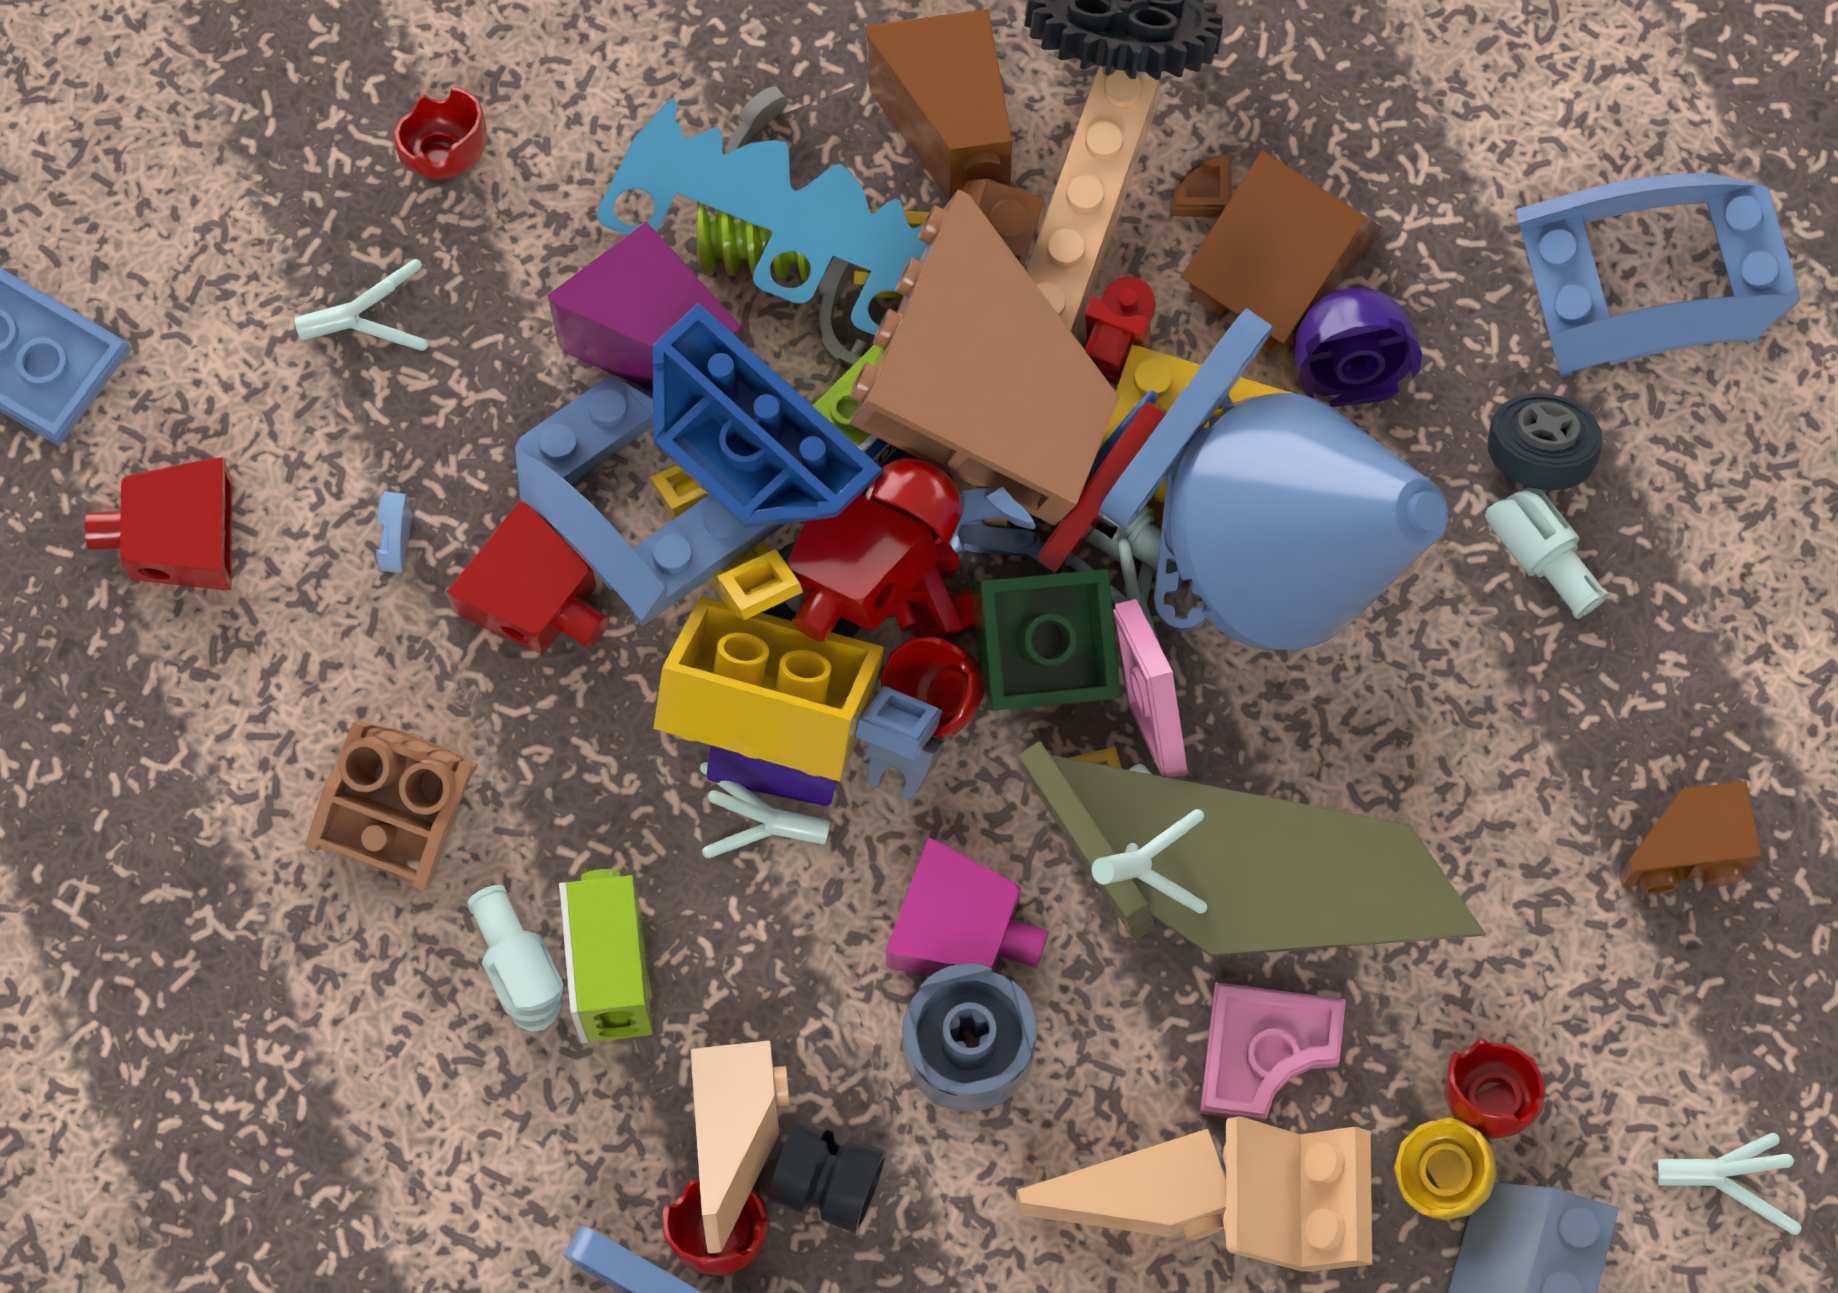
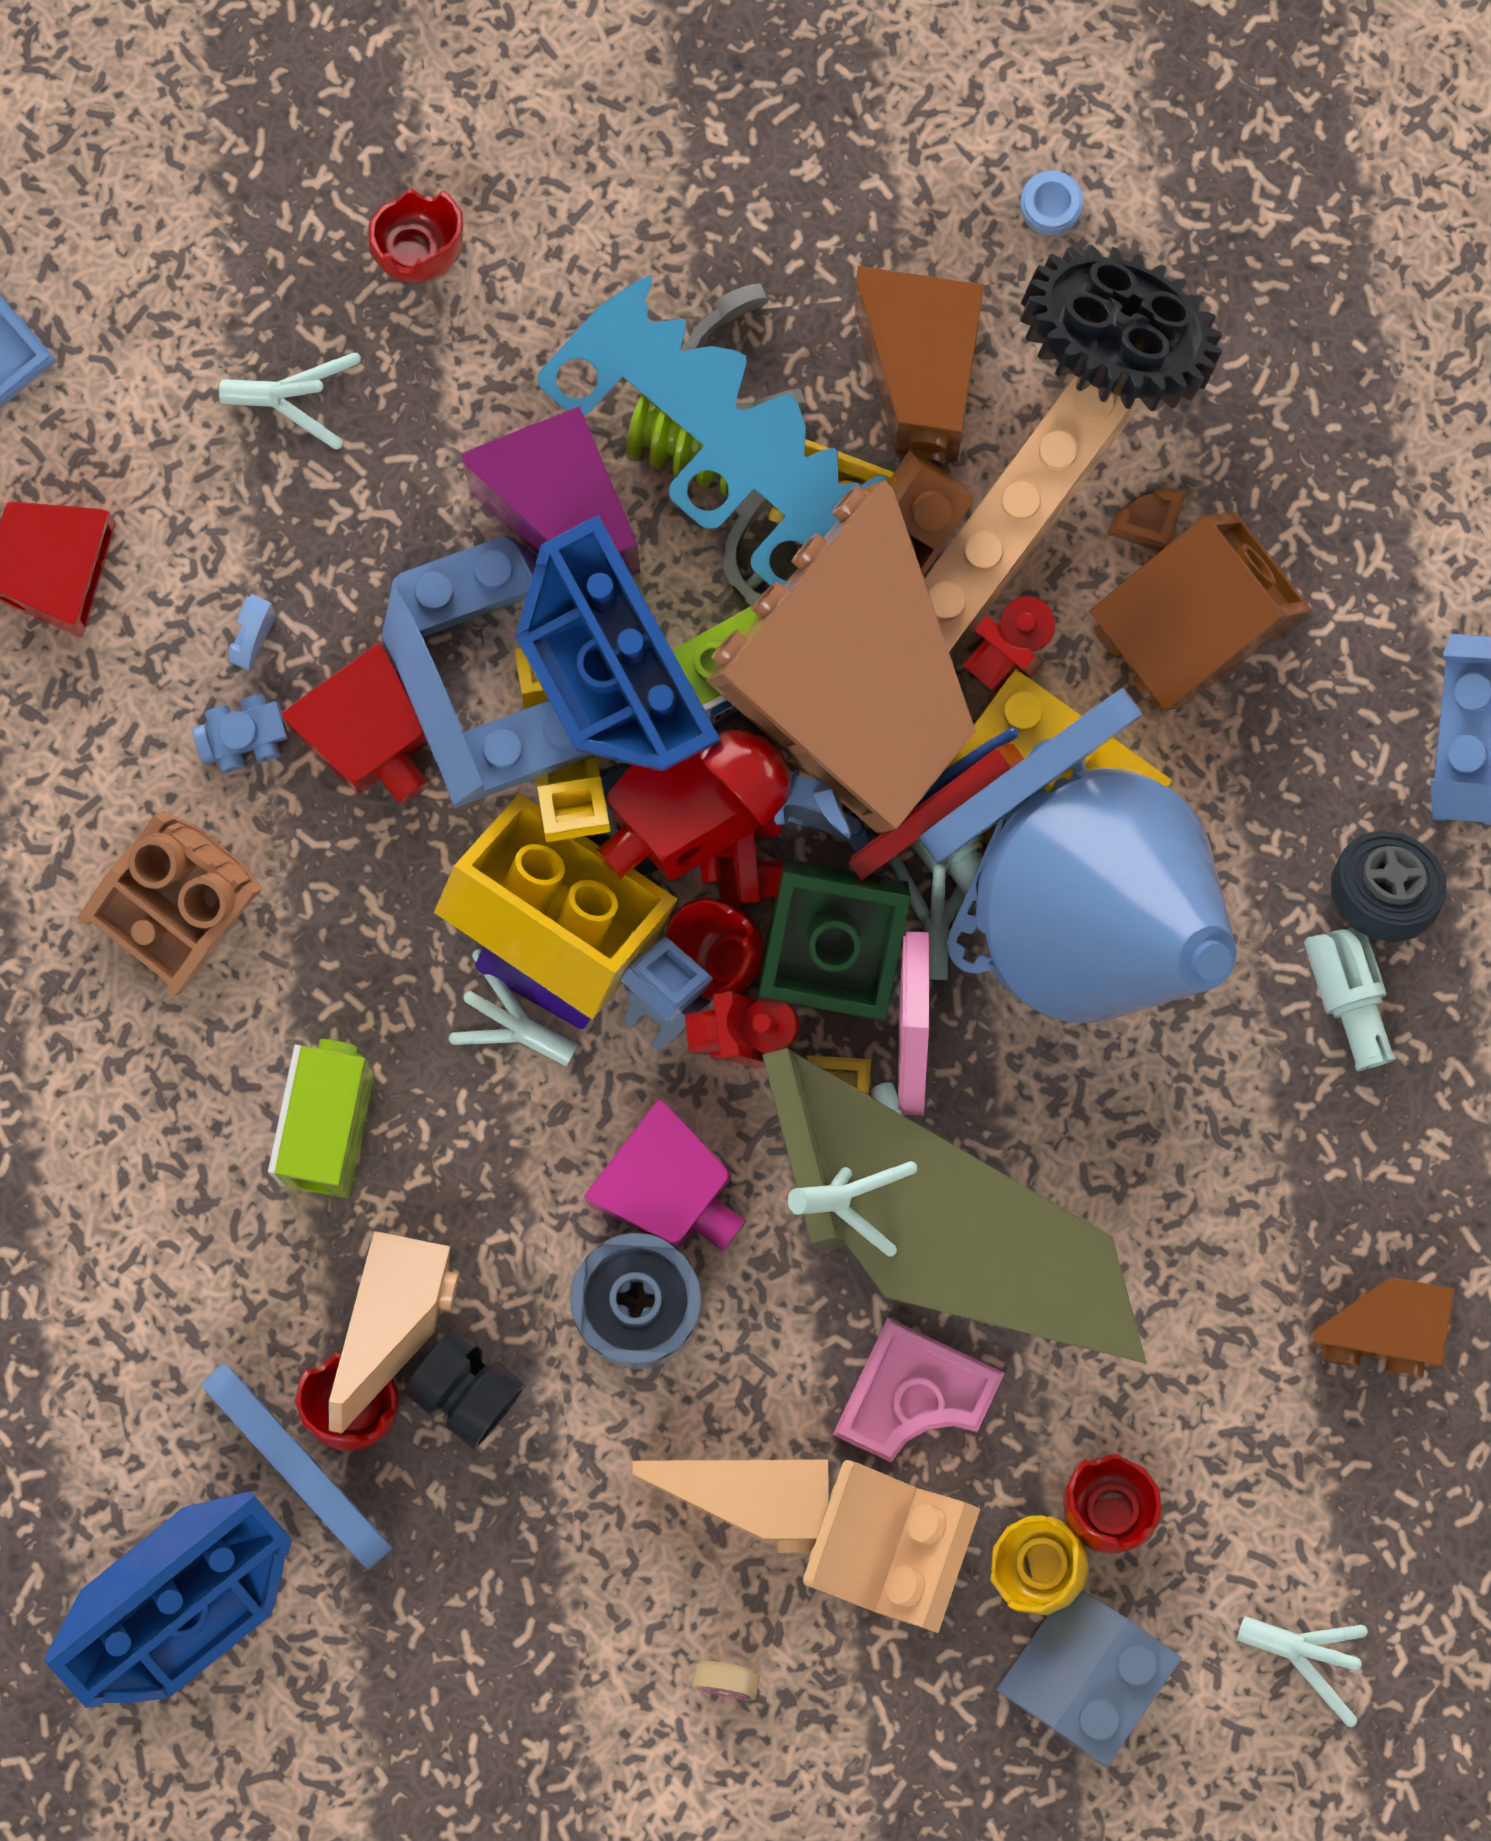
camera: 20 degrees right, 10 degrees up
(407, 629) = (234, 733): none -> medium blue piece
(517, 962) = (241, 1091): light aqua arm -> none
(984, 749) = (742, 1028): none -> red hips
(1366, 342) = (1236, 731): dark purple cylinder -> none

